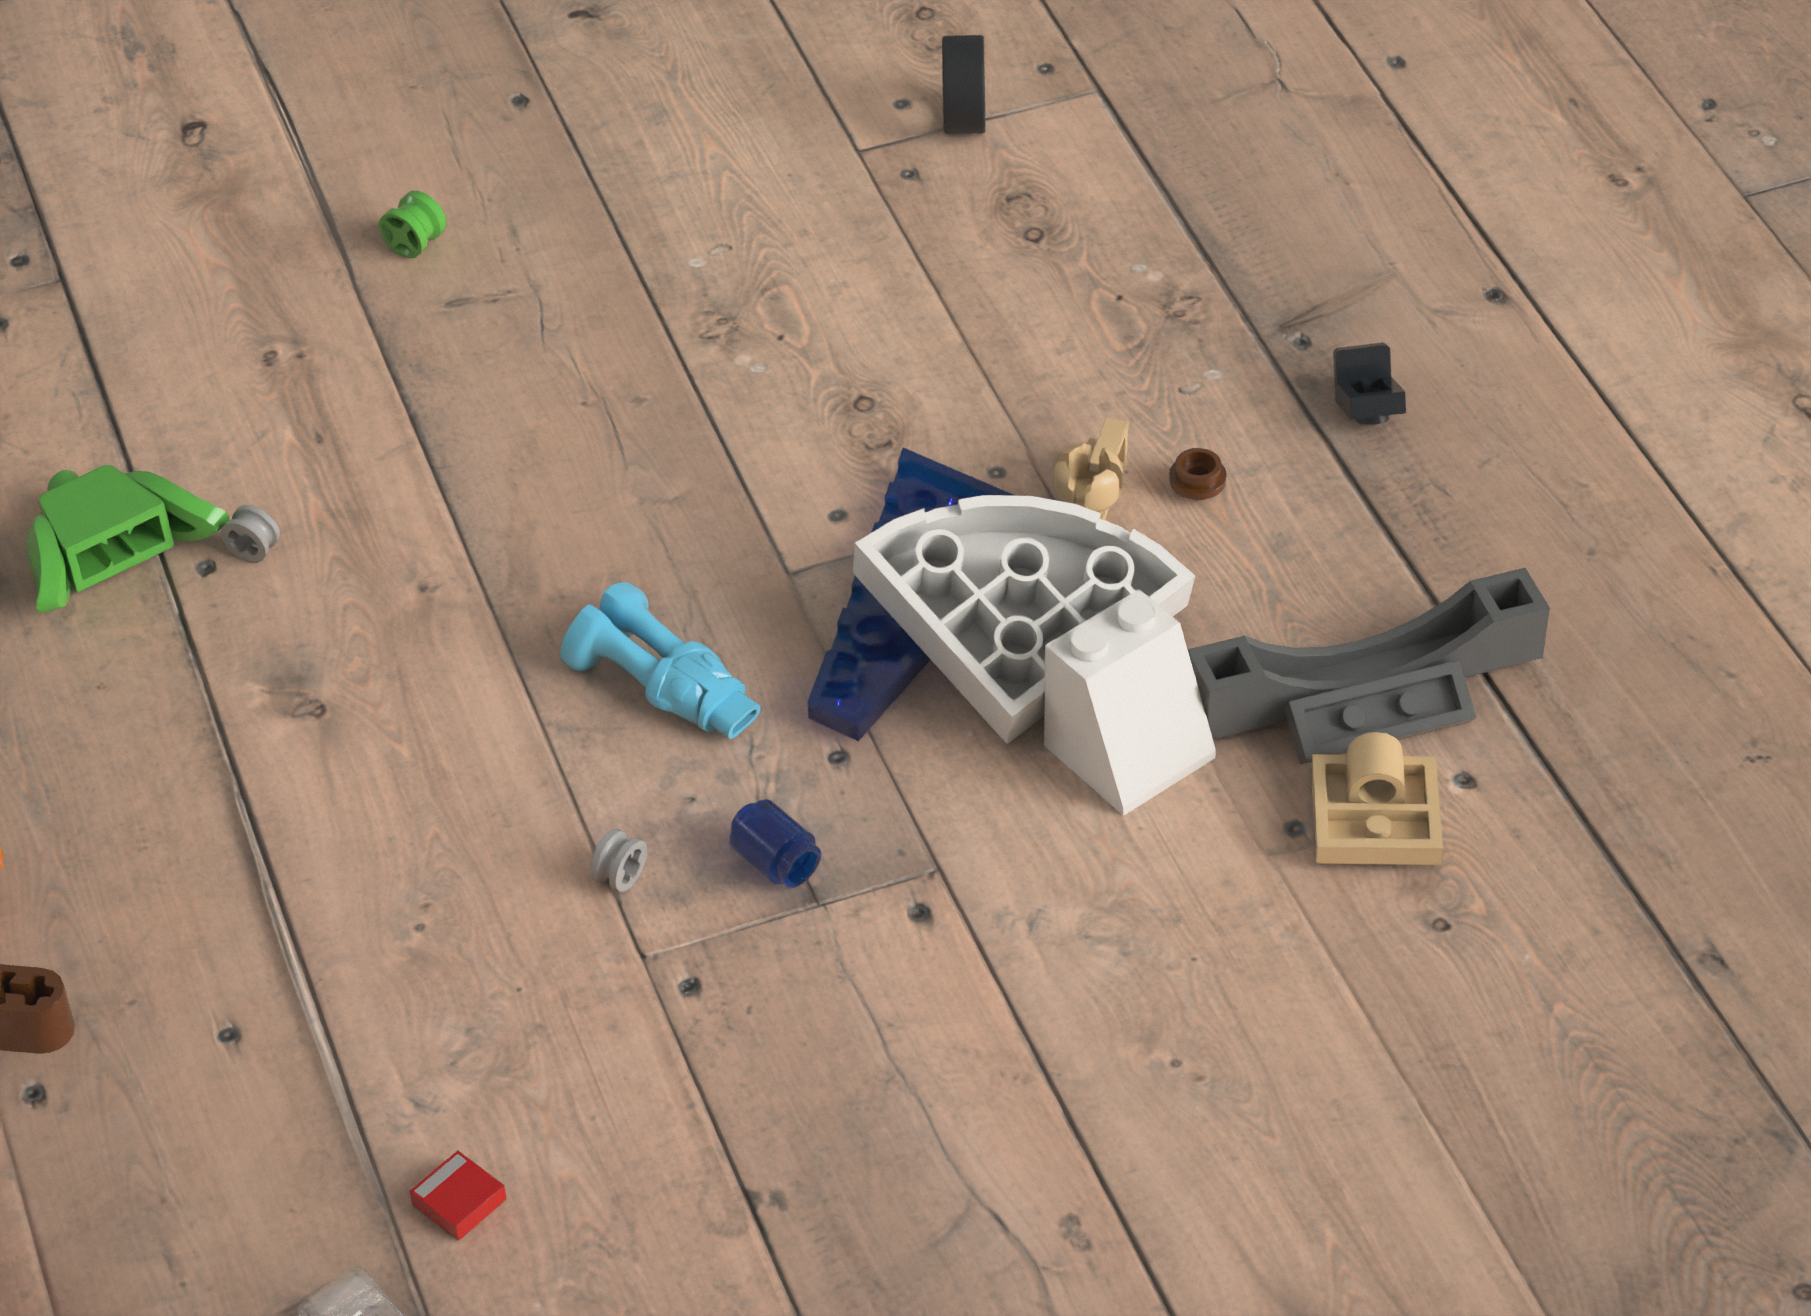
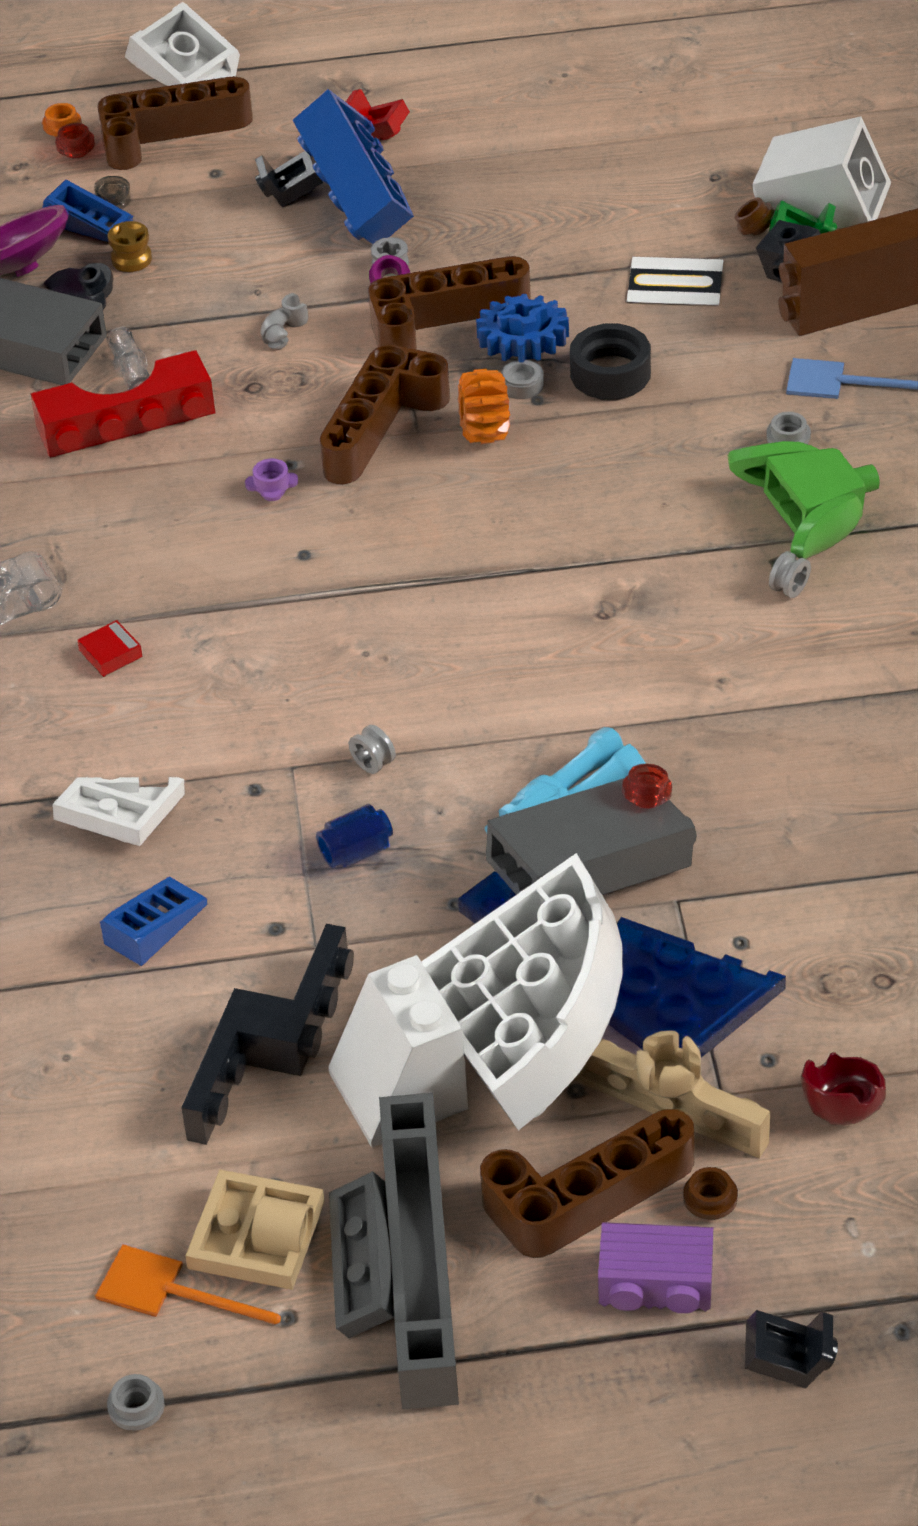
camera: 105 degrees right, 0 degrees up
(87, 1089) = (271, 479): none -> medium lavender plate
(686, 551) = (647, 786): none -> clear red plate
(760, 614) = (608, 833): none -> dark grey brick
(769, 1095) = (117, 806): none -> white wing
(958, 1040) = (141, 944): none -> blue slope
(1042, 388) = (843, 1089): none -> dark red hair
(1103, 849) = (267, 1034): none -> black bracket
(1261, 573) = (588, 1187): none -> reddish brown beam
(1310, 491) = (655, 1266): none -> medium lavender brick
(1465, 907) = (144, 1279): none -> orange piece
(1630, 860) = (131, 1390): none -> light grey plate

